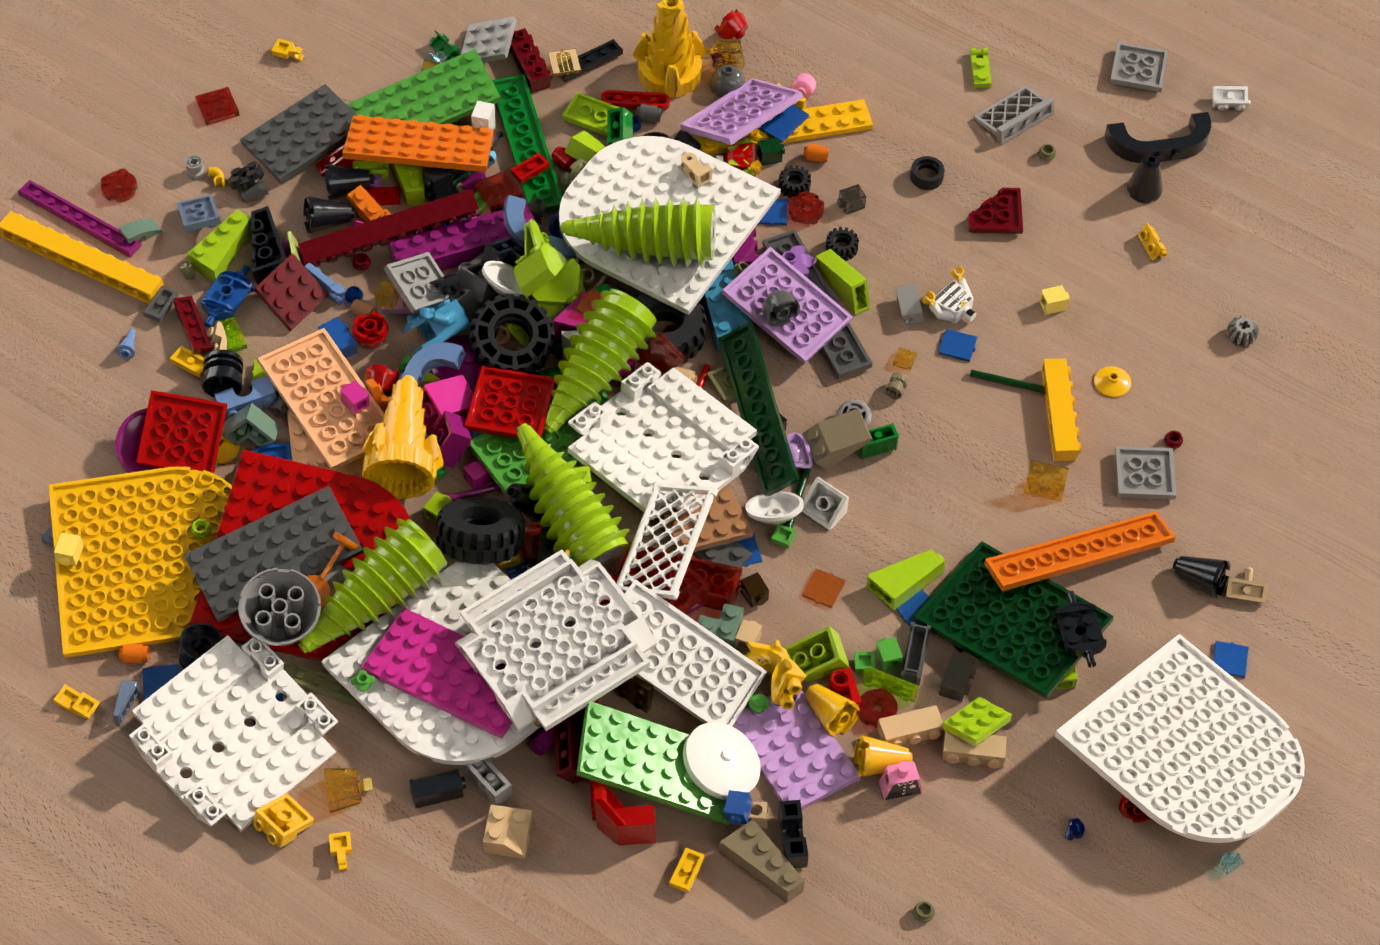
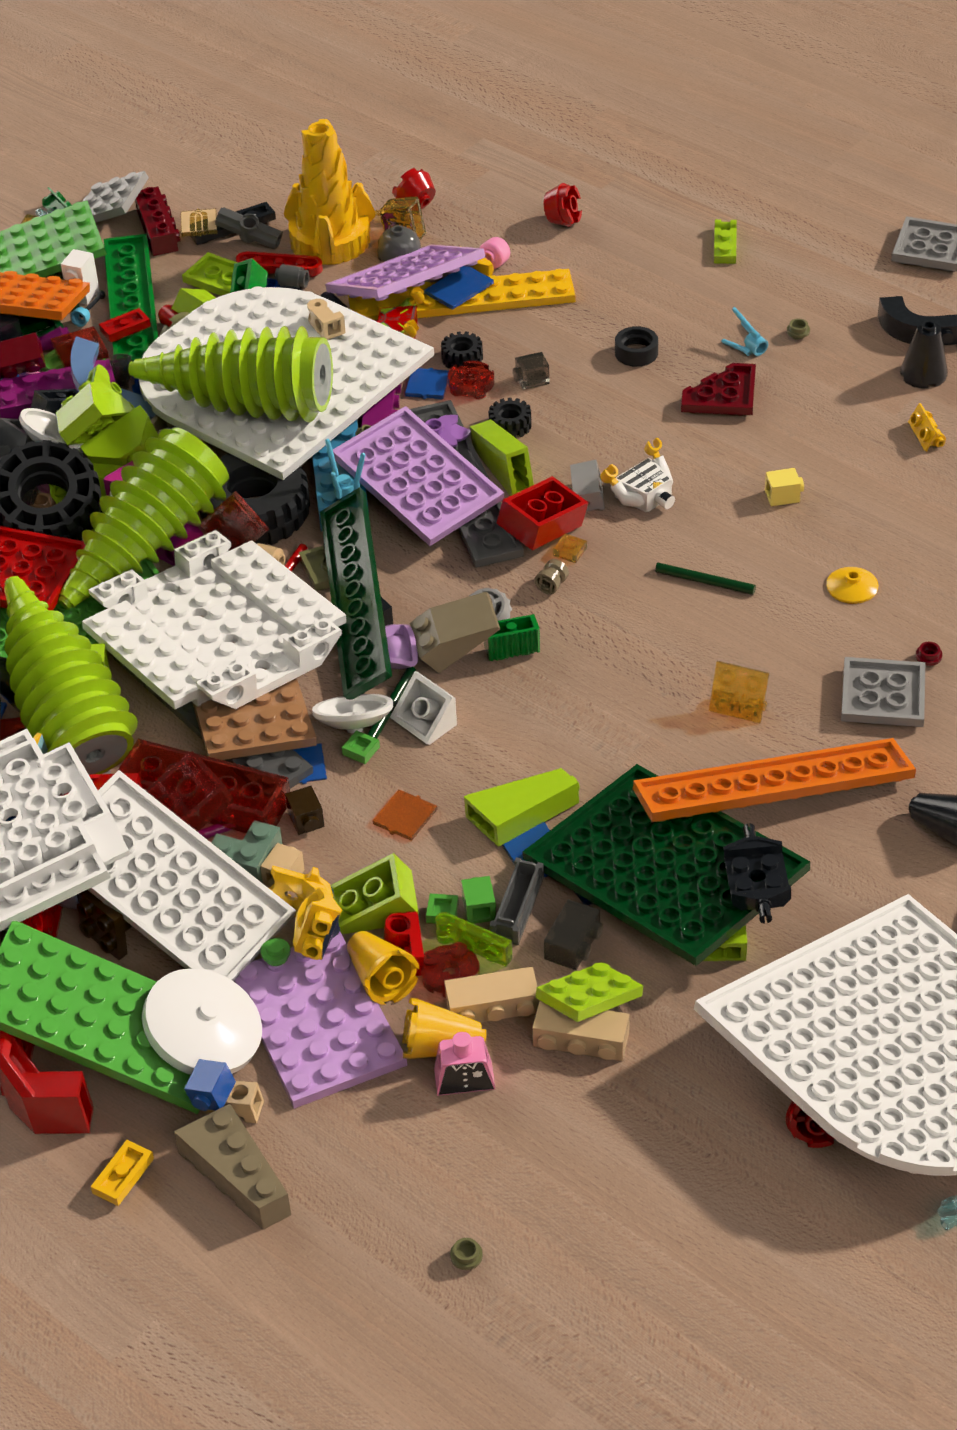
camera: 10 degrees right, 10 degrees down
(615, 70) = (248, 228): none -> dark grey piece
(686, 550) = (246, 673): white door -> none
(736, 318) = (343, 483): none -> medium azure plant
(770, 151) = (437, 318): dark green brick -> none
(780, 307) = (402, 471): dark grey cylinder -> none
(792, 833) = (289, 1129): black arch -> none
(816, 153) = (495, 321): orange brick -> none
(850, 39) = (562, 205): none -> red cone
(883, 333) = (542, 513): none -> red brick
(957, 345) = (645, 536): blue piece -> none
(1016, 166) = (753, 342): none -> medium azure plant
(1021, 120) = (778, 288): light grey fence -> none
(1060, 410) = (773, 614): yellow brick -> none
(1075, 829) = (717, 1150): clear blue plate -> none

